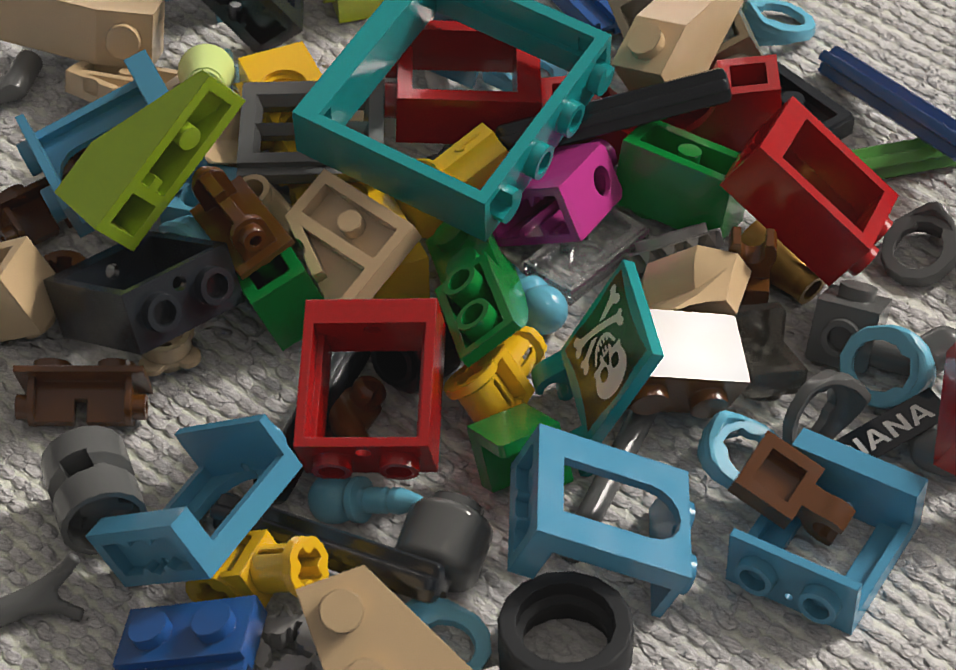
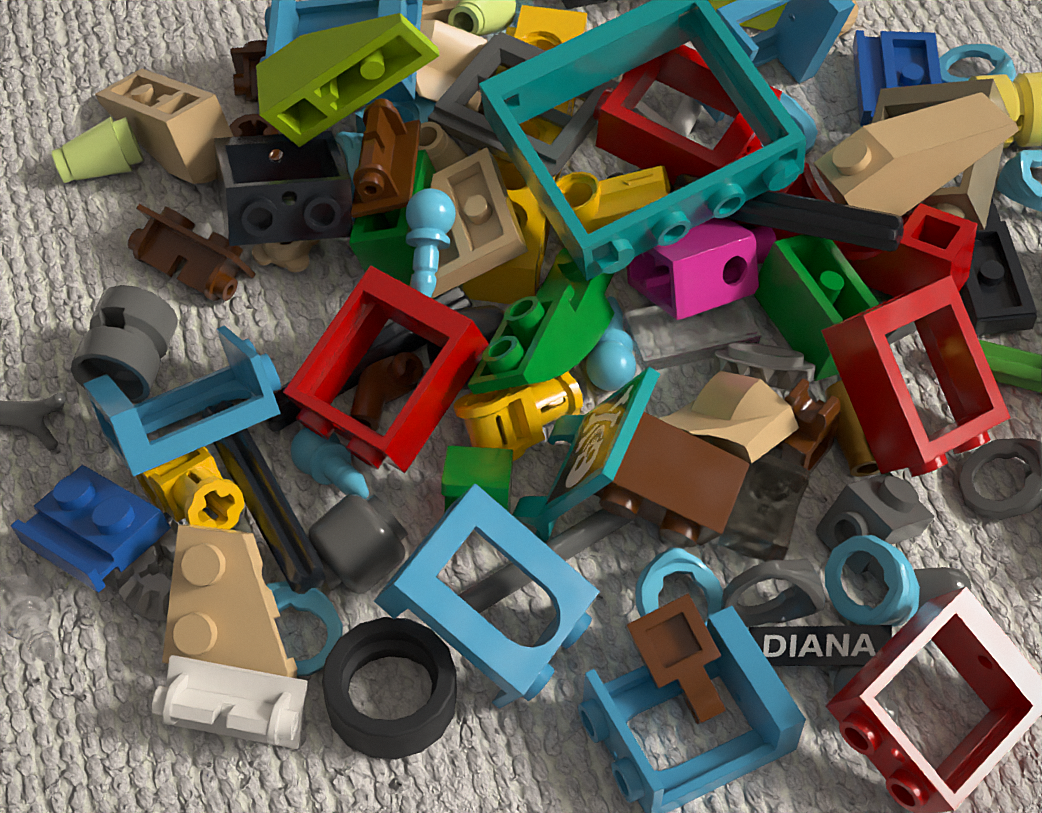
camera: 30 degrees right, 10 degrees up
(321, 244) = (430, 217): none -> medium azure bar

